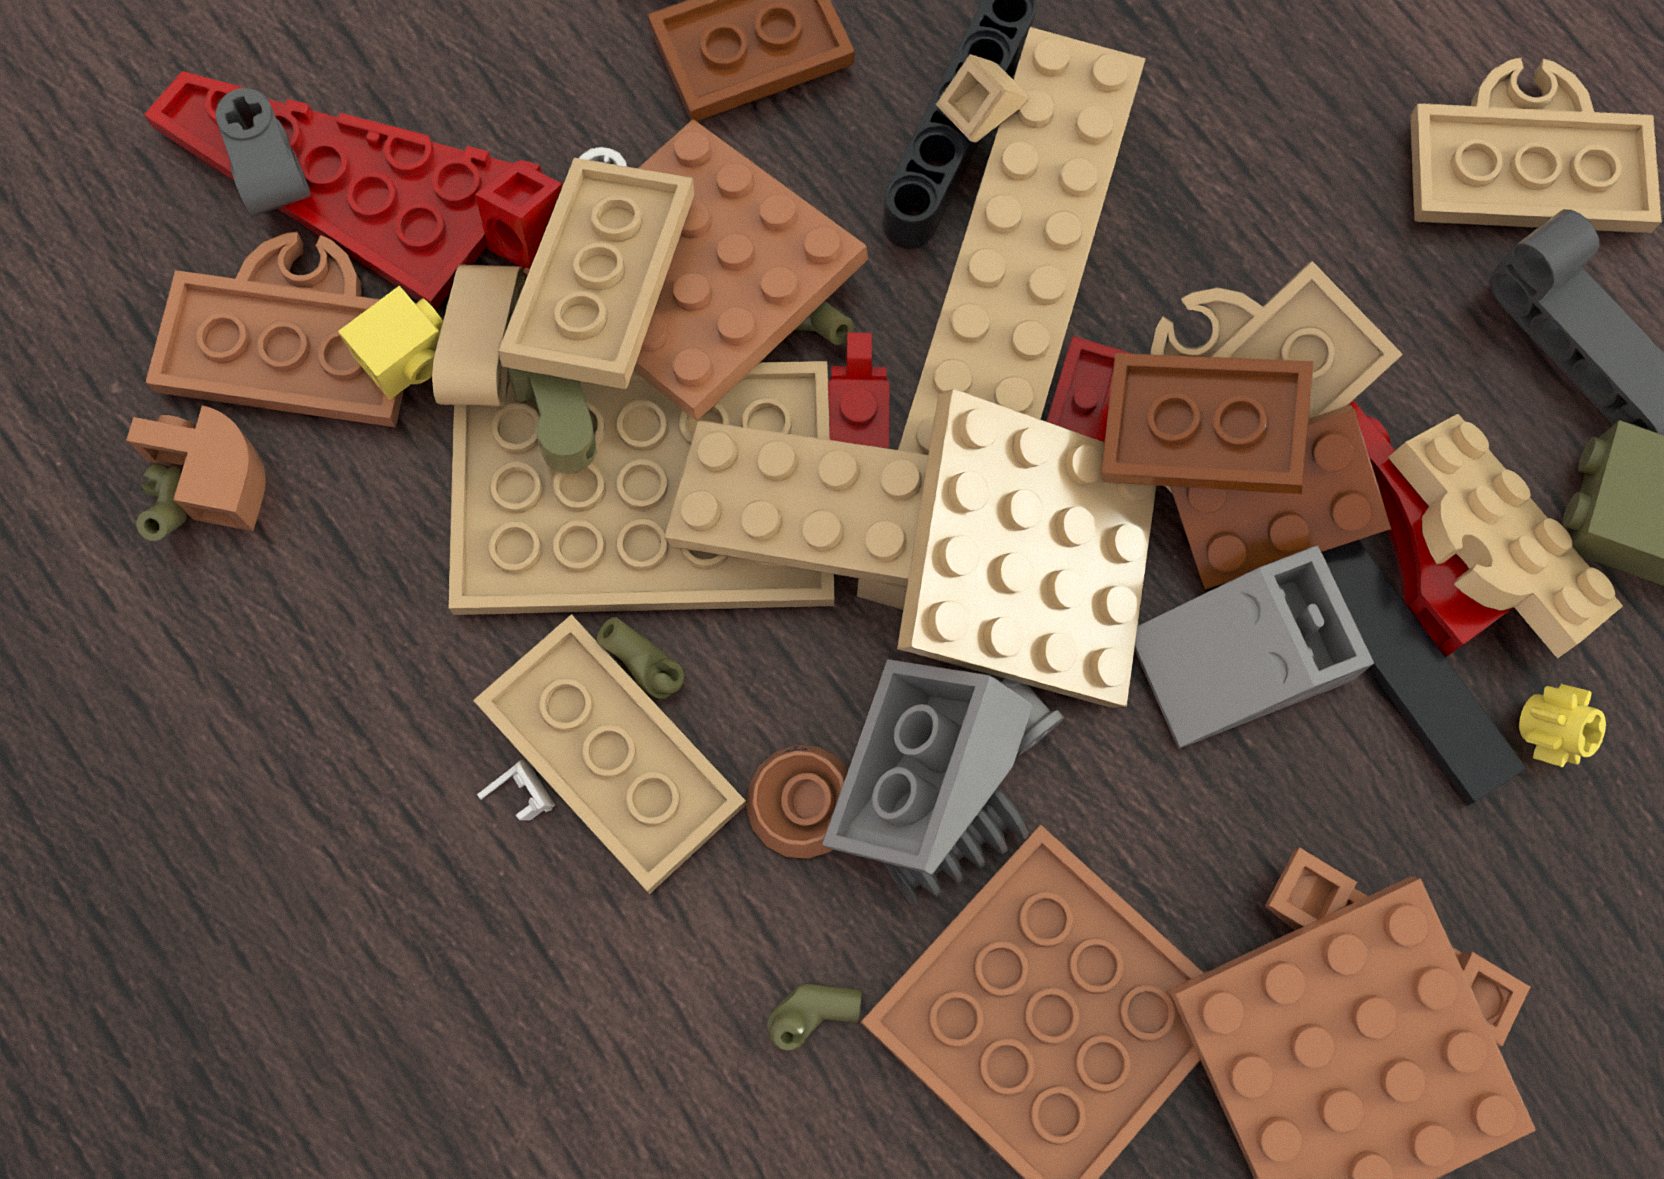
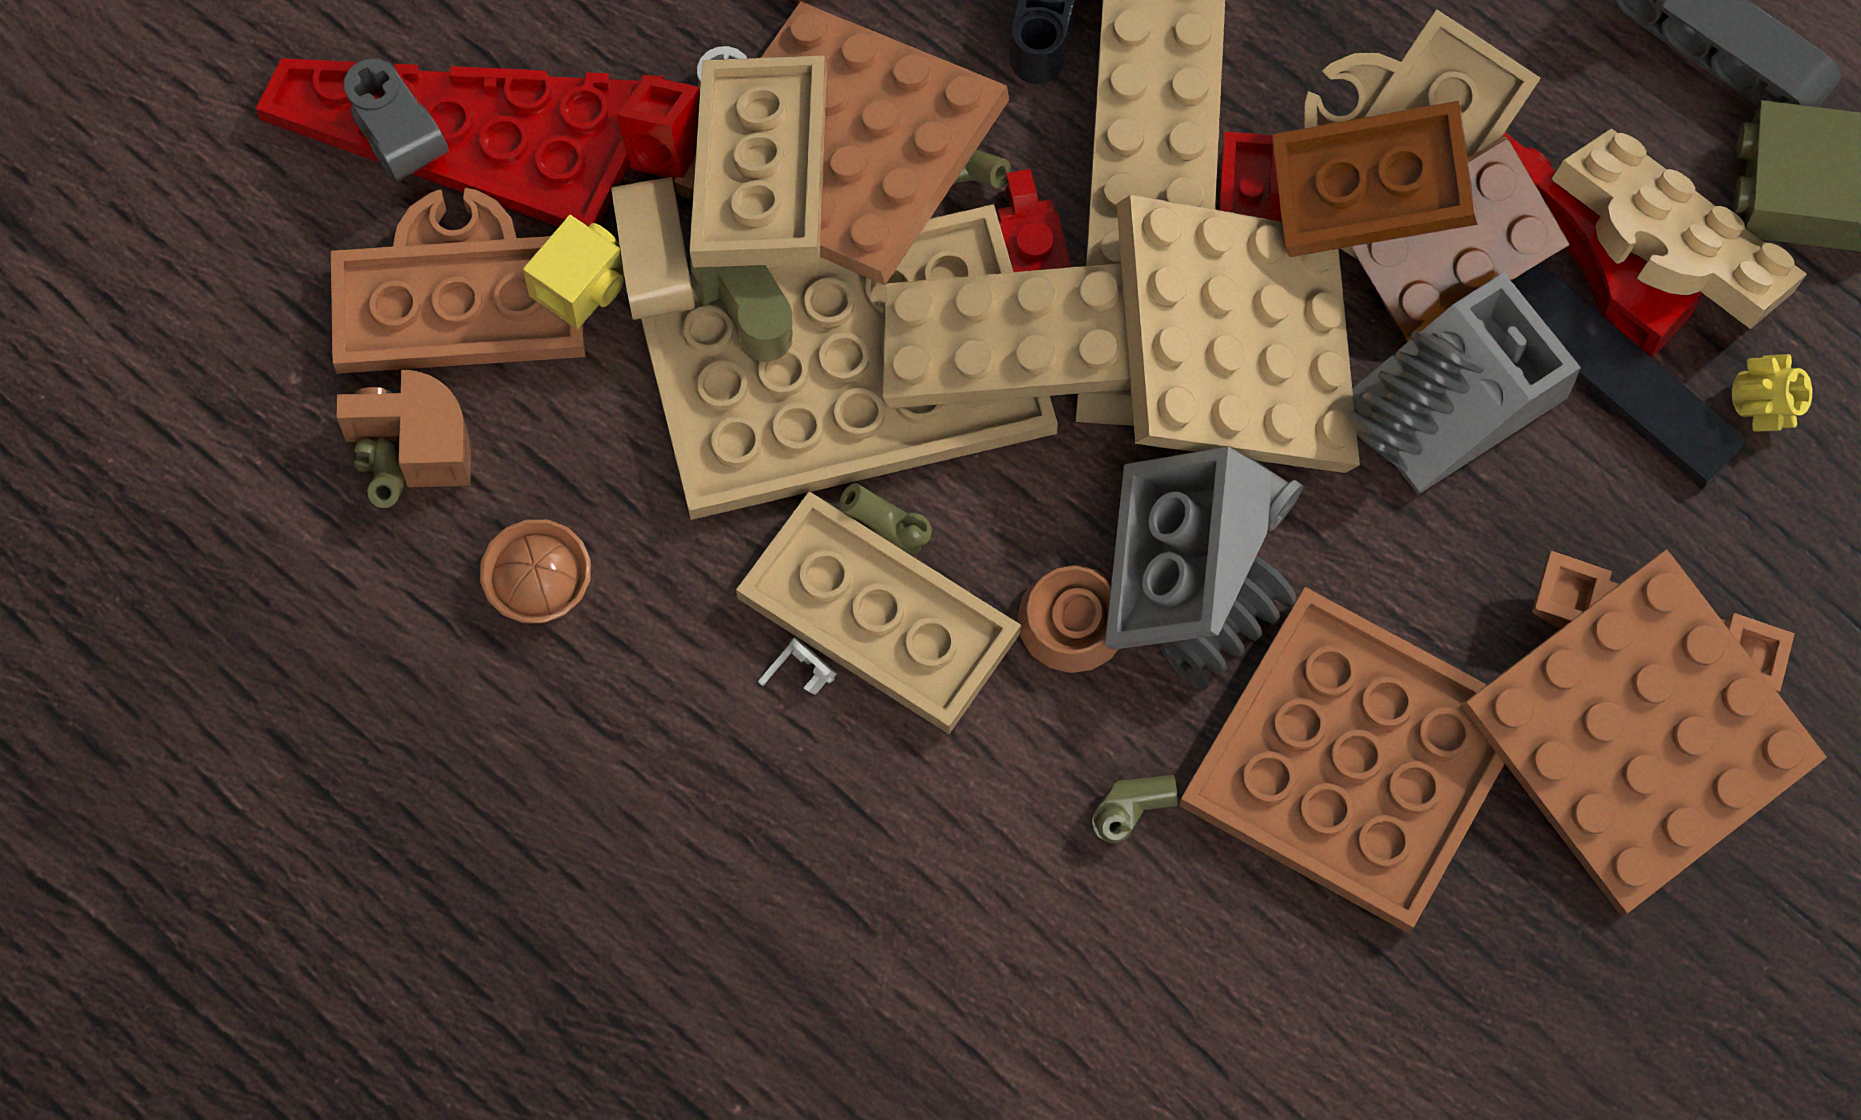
camera: 10 degrees left, 5 degrees down
(283, 636) = (535, 571): none -> nougat hat
(1196, 656) = (1413, 396): none -> dark grey piece

